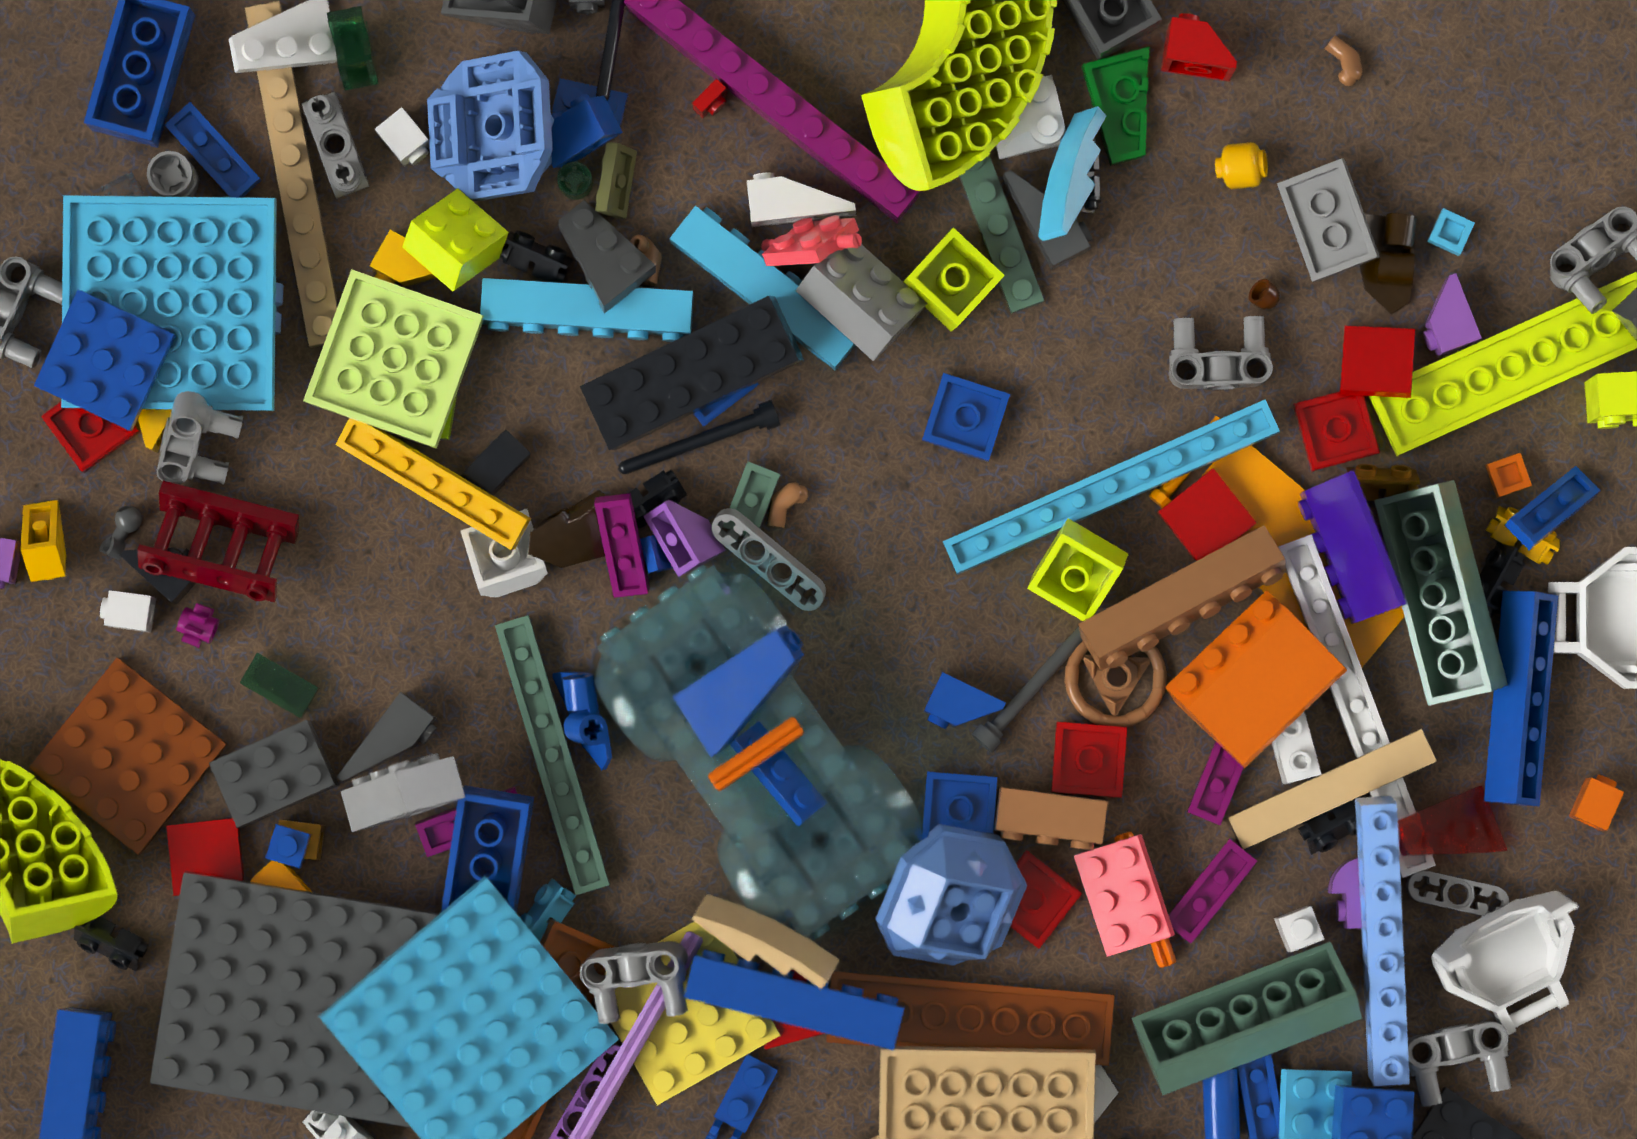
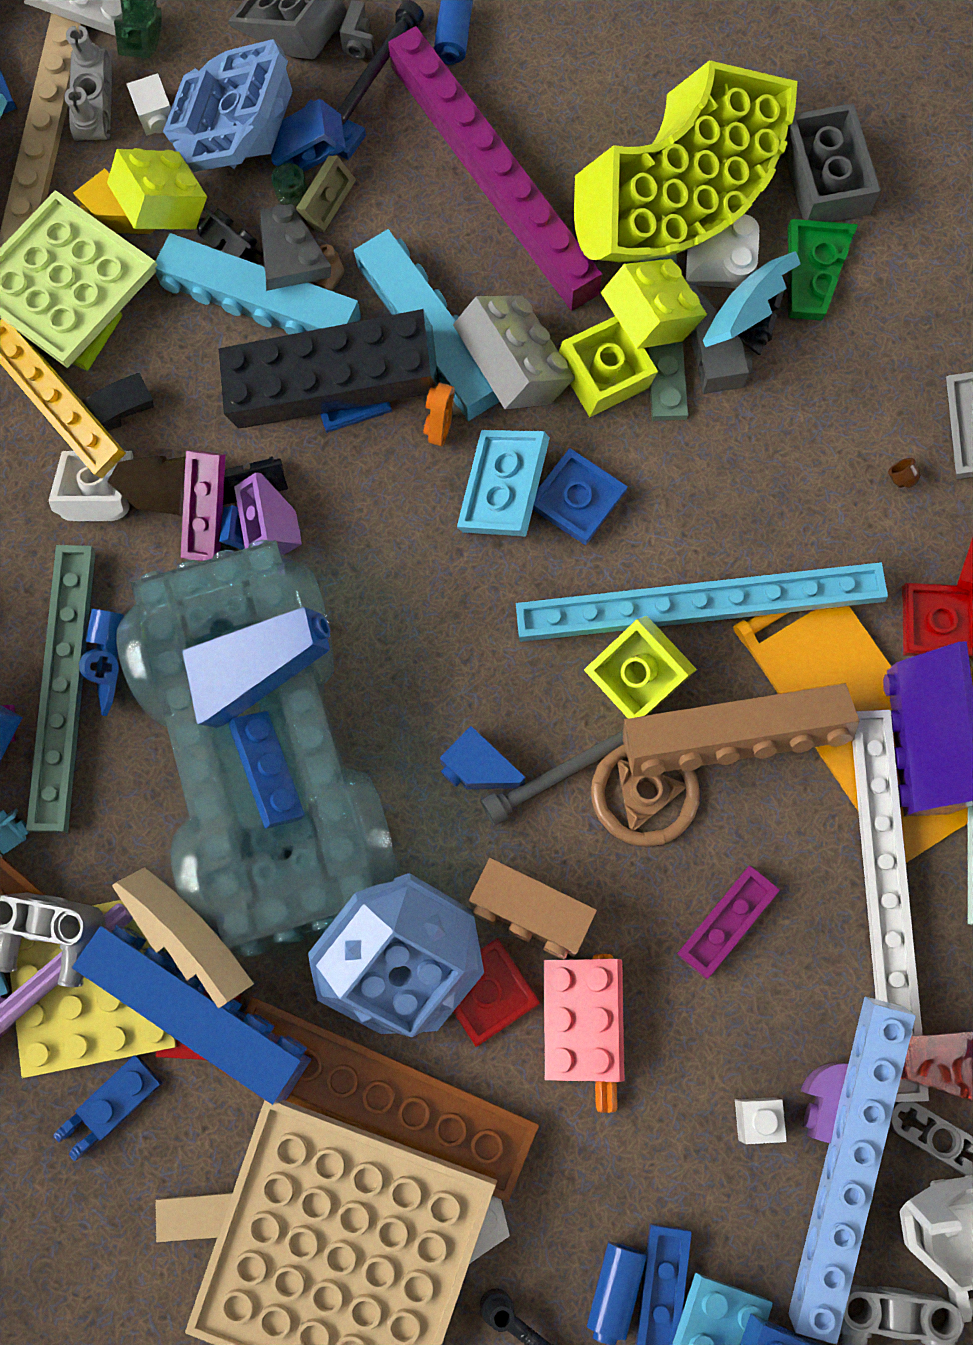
camera: 20 degrees right, 10 degrees down
(711, 99) = (436, 151): red plate -> none
(753, 494) = (344, 509): sand green plate -> none
(756, 754) = (244, 736): orange axle -> none
(763, 417) = (384, 437): black piece -> none
(764, 564) = (336, 569): light grey beam -> none
(784, 499) = (374, 519): medium nougat arm -> none
(785, 201) = (476, 257): white slope -> none
(810, 382) = (439, 420): none -> orange plate
(811, 241) = (481, 283): coral plate -> none
(893, 428) = (503, 482): none -> medium azure plate
(959, 802) = (446, 862): blue plate -> none
(980, 211) = (653, 303): none -> neon yellow brick
(1089, 759) = (592, 865): red plate -> none
(1196, 50) = (905, 233): red slope -> none
(1206, 516) = (786, 659): red tile -> none
(1210, 890) = (676, 1046): magenta plate -> none
(1219, 368) = (840, 525): light grey piece -> none
(1242, 165) = (916, 350): yellow head -> none
(1247, 1018) = (676, 1203): sand green brick -> none
(1255, 679) = (791, 836): orange slope -> none
(1296, 752) = (809, 919): white brick -> none
(1323, 833) = (817, 1027): black hinge -> none
(1332, 789) = (841, 979): tan tile -> none

